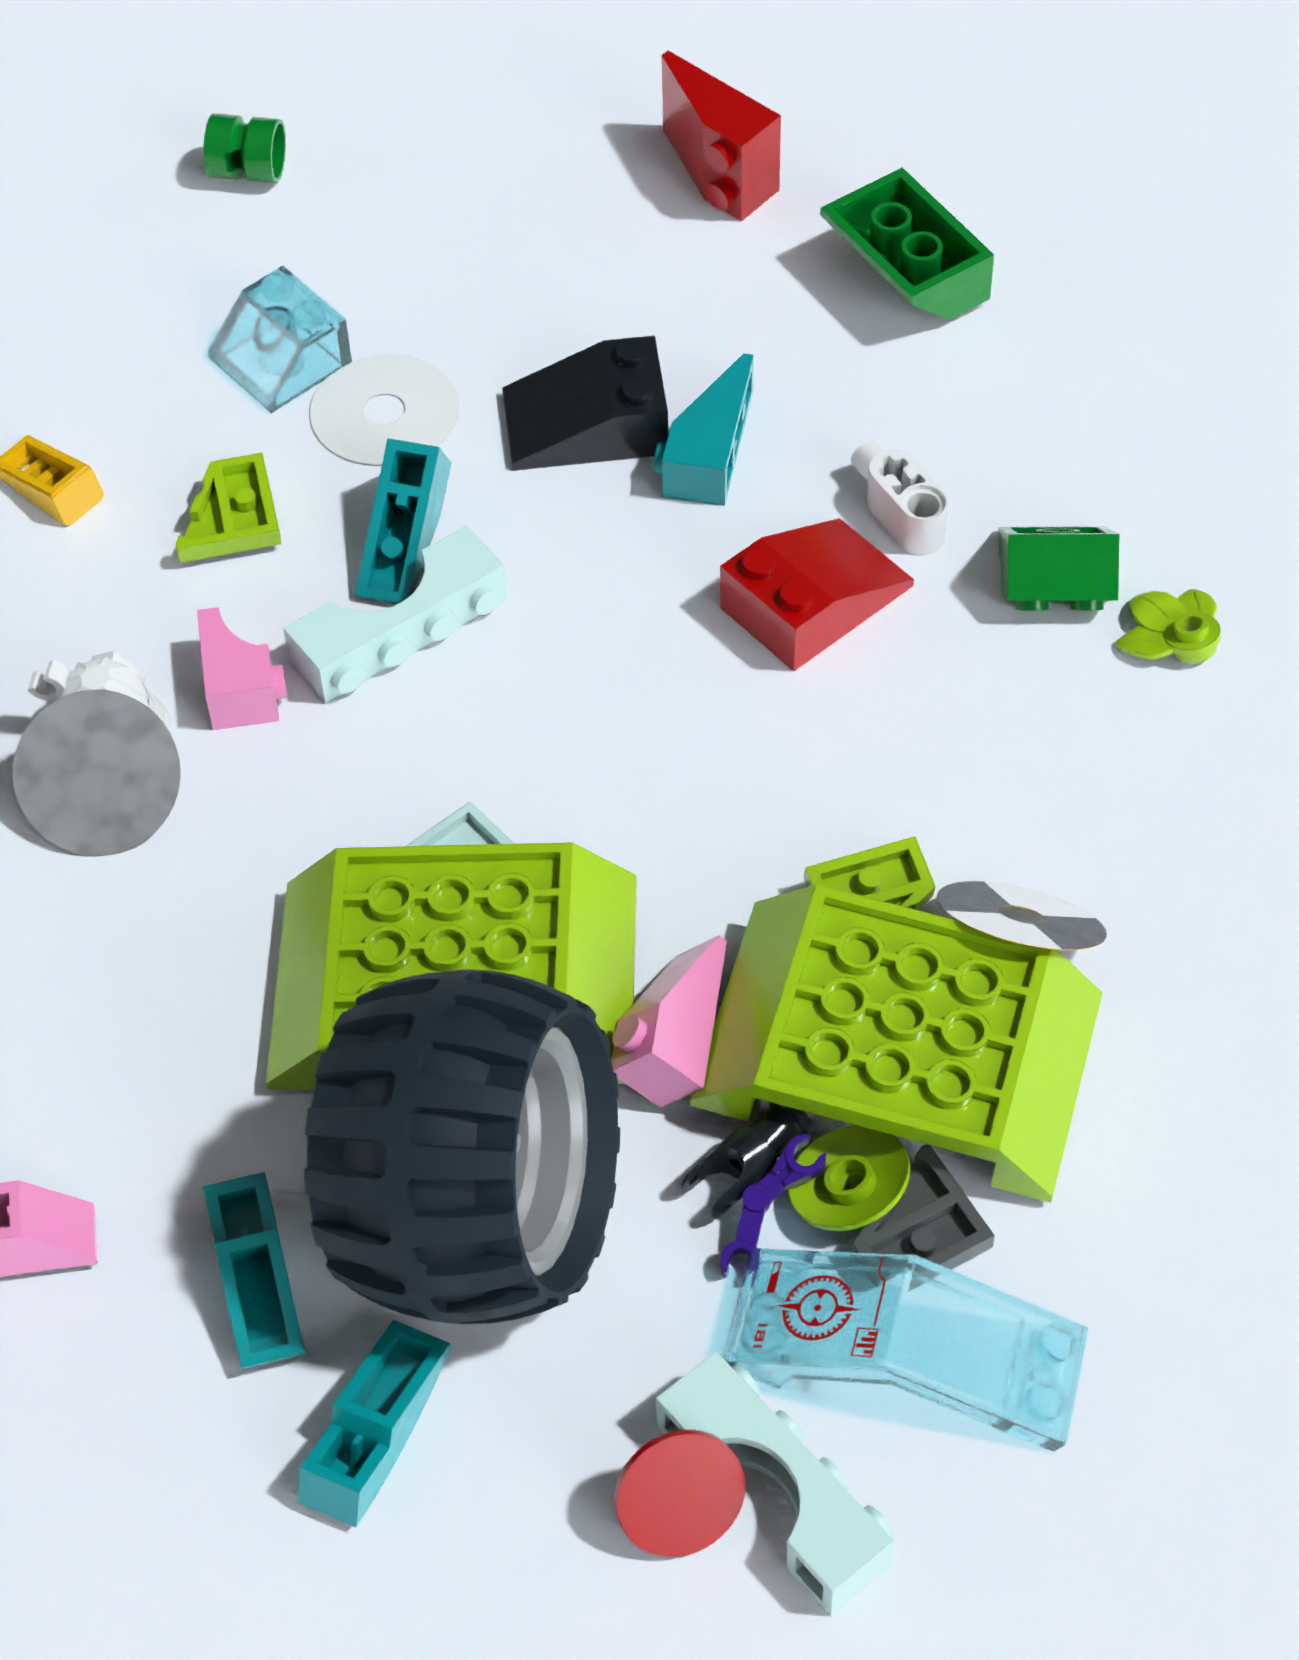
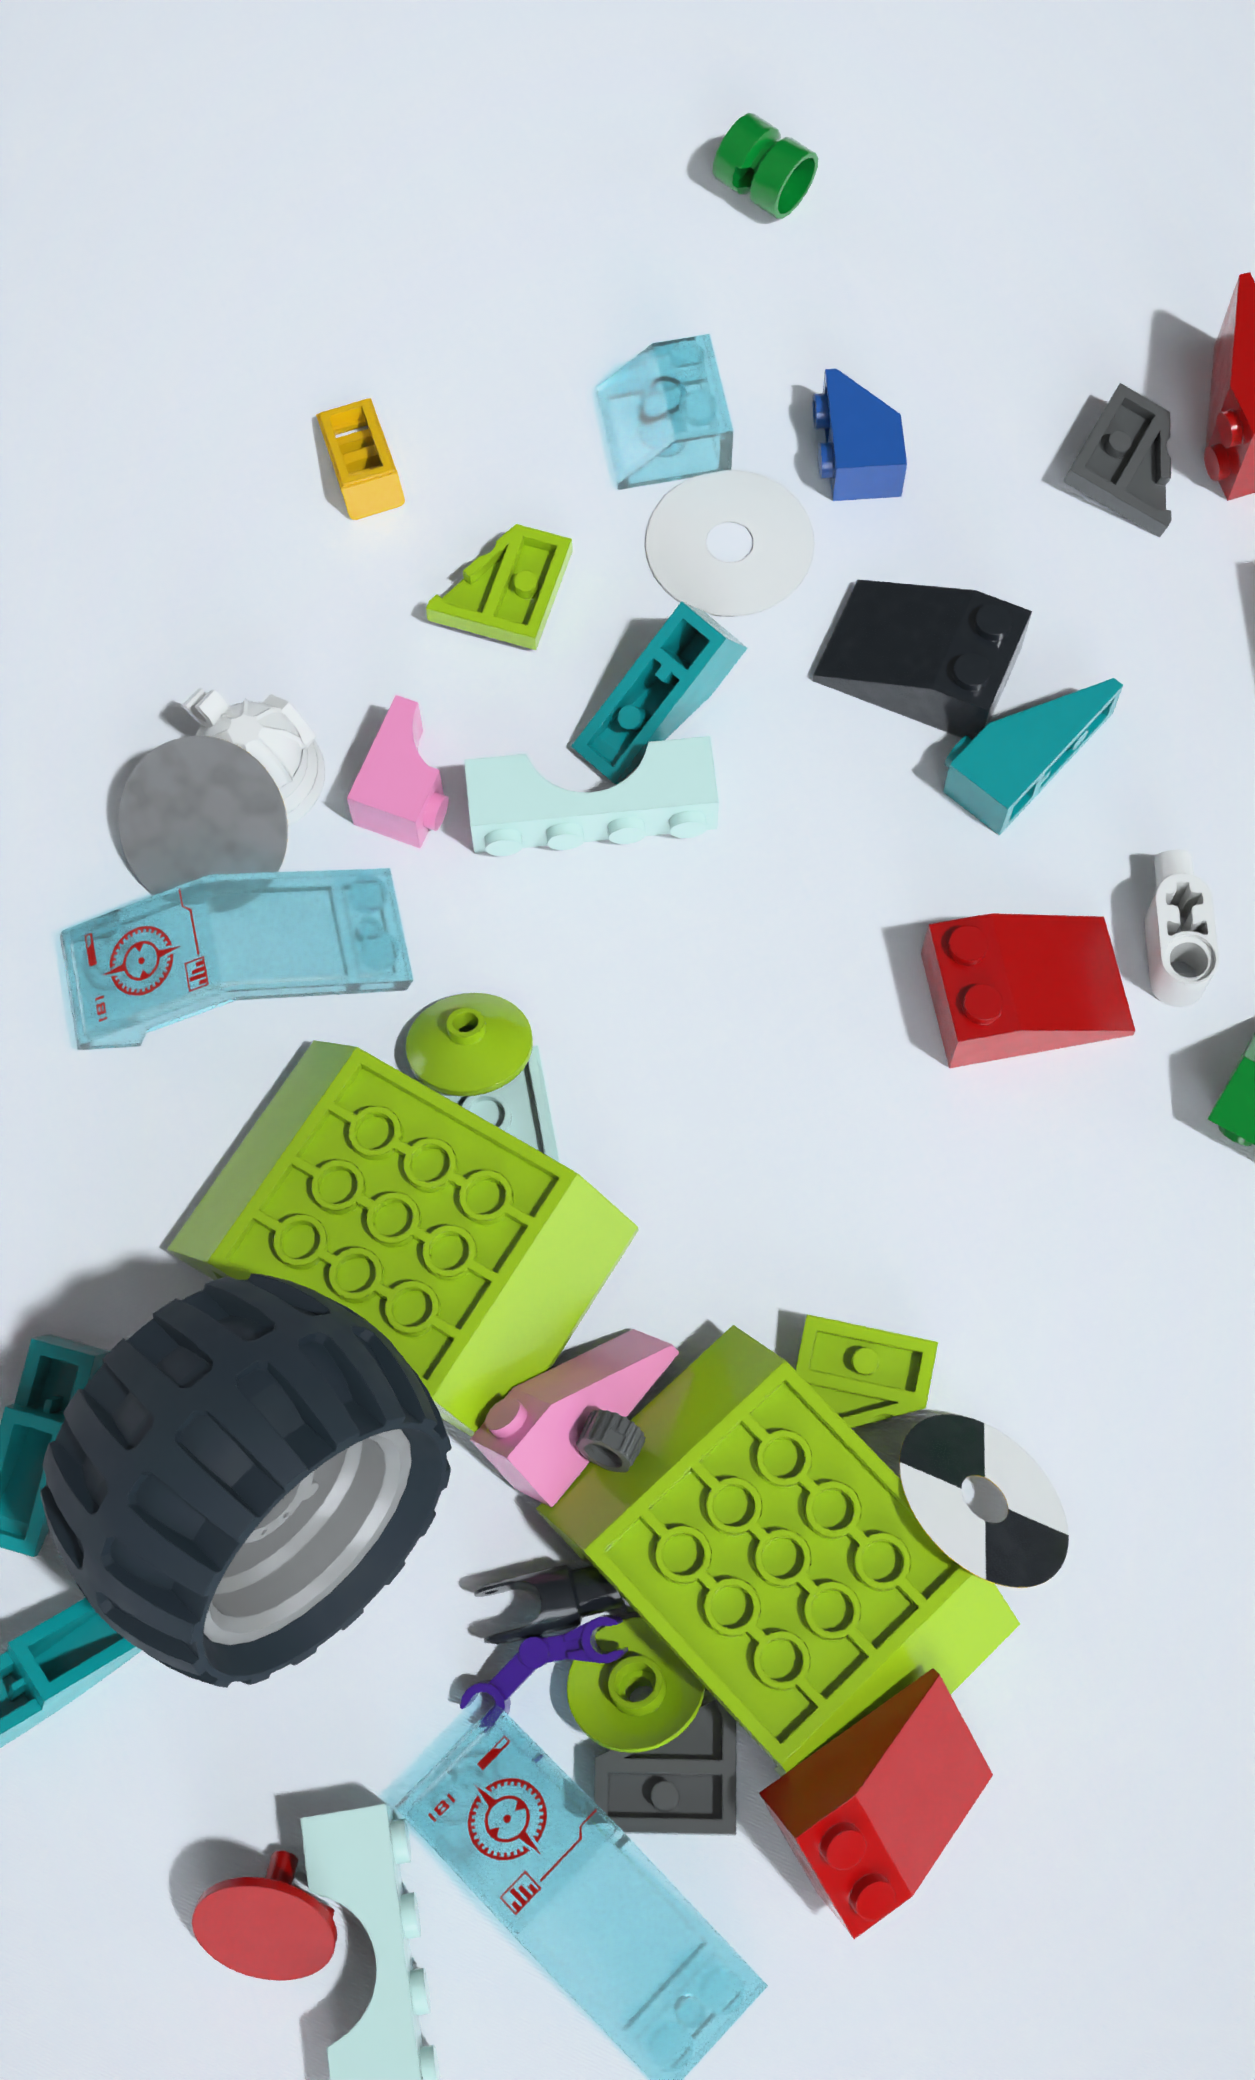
camera: 30 degrees right, 15 degrees up
(164, 846) = (230, 943): none -> clear light blue windscreen
(417, 818) = (469, 1044): none -> lime dish
(442, 293) = (862, 438): none -> blue slope
(652, 224) = (1128, 460): none -> dark grey wing
(720, 994) = (610, 1440): none -> dark grey axle
(1083, 1152) = (881, 1802): none -> red slope

